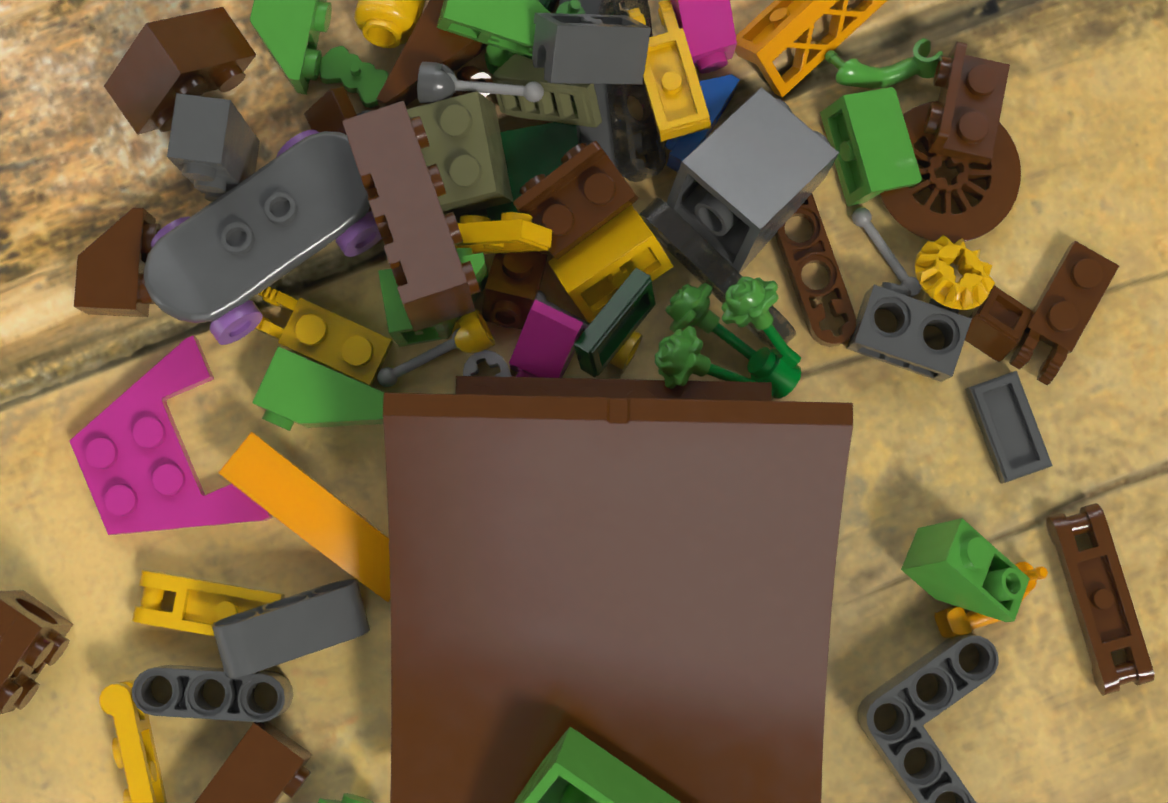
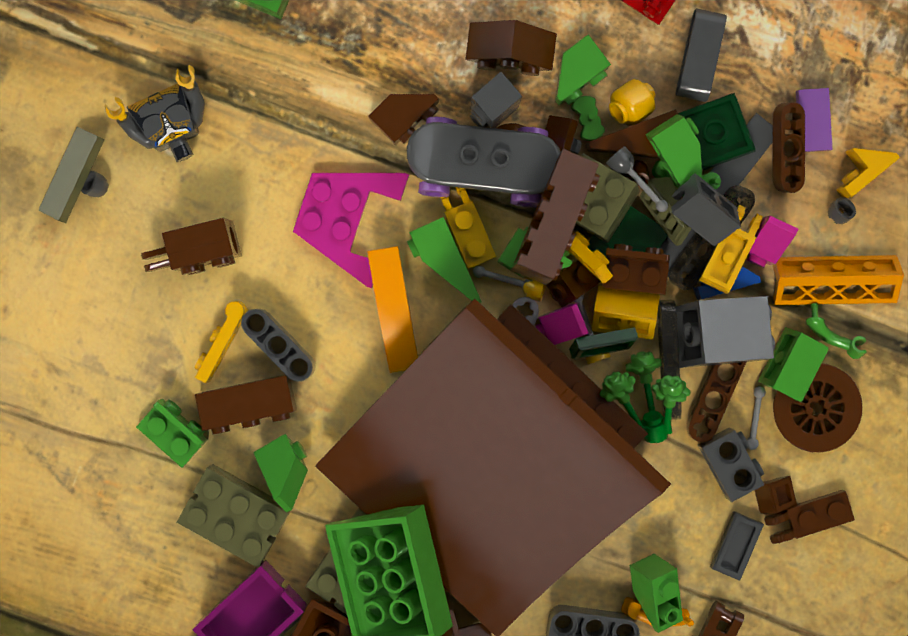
camera: 50 degrees right, 5 degrees up
(196, 602) = (309, 305): yellow plate -> none
(290, 628) = (338, 348): dark grey beam -> none
(938, 277) = (766, 453): yellow gear -> none
(967, 107) = (853, 387): reddish brown bracket -> none

